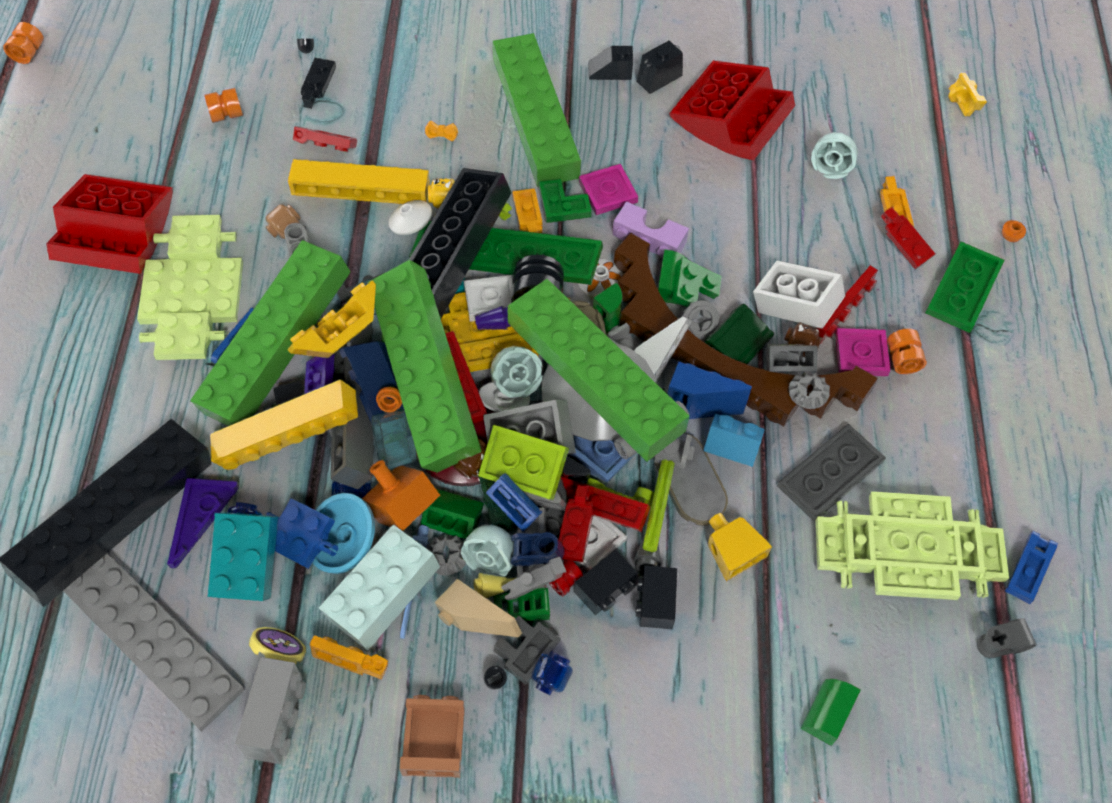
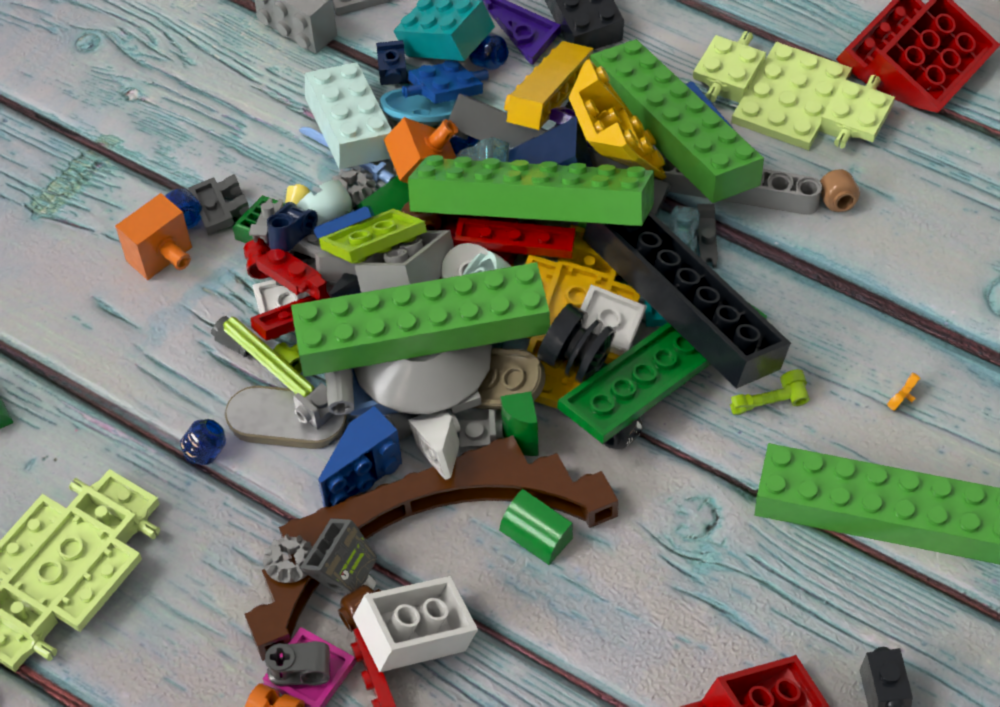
camera: 125 degrees right, 5 degrees down
(277, 644) = (348, 31): tile -> none
(291, 602) = (391, 62): none -> dark blue brick
(323, 138) = (949, 273): red hinge -> none
(348, 658) = (295, 87): light orange hinge -> none
(358, 182) = (859, 280): yellow brick -> none
(386, 404) = (516, 154): orange plate -> none
(410, 217) = (782, 309): white dish -> none
(433, 737) = (193, 111): nougat panel -> none
(438, 190) = (801, 350): yellow head -> none
(474, 613) = (272, 171): tan slope -> none
(490, 672) = (206, 167): black hinge -> none
(493, 319) = (572, 293): dark purple cone -> none
(527, 210) = (719, 424): light orange hinge -> none
(560, 207) = (718, 459): green plate -> none
(601, 661) = (155, 237): none -> orange brick
(606, 582) = (230, 286): black brick -> none
(608, 189) = (711, 526): dark pink plate -> none
(610, 276) = (604, 459): white dish -> none
(612, 64) = (926, 640): black slope -> none
(633, 219) = (636, 519): lavender arch -> none
(658, 597) = (184, 320): black brick -> none
(691, 280) = (518, 533): green plate -> none
(706, 310) = (464, 509): light grey gear -> none
(734, 439) = (290, 465): dark azure brick -> none
(736, 545) = (180, 405): yellow torso -> none
(740, 335) = (413, 548): dark green piece -> none
(756, 509) = (203, 441): none -> clear blue head
(831, 472) = (198, 553): dark grey tile -> none
(870, 344) = (301, 662): none -> dark grey piece

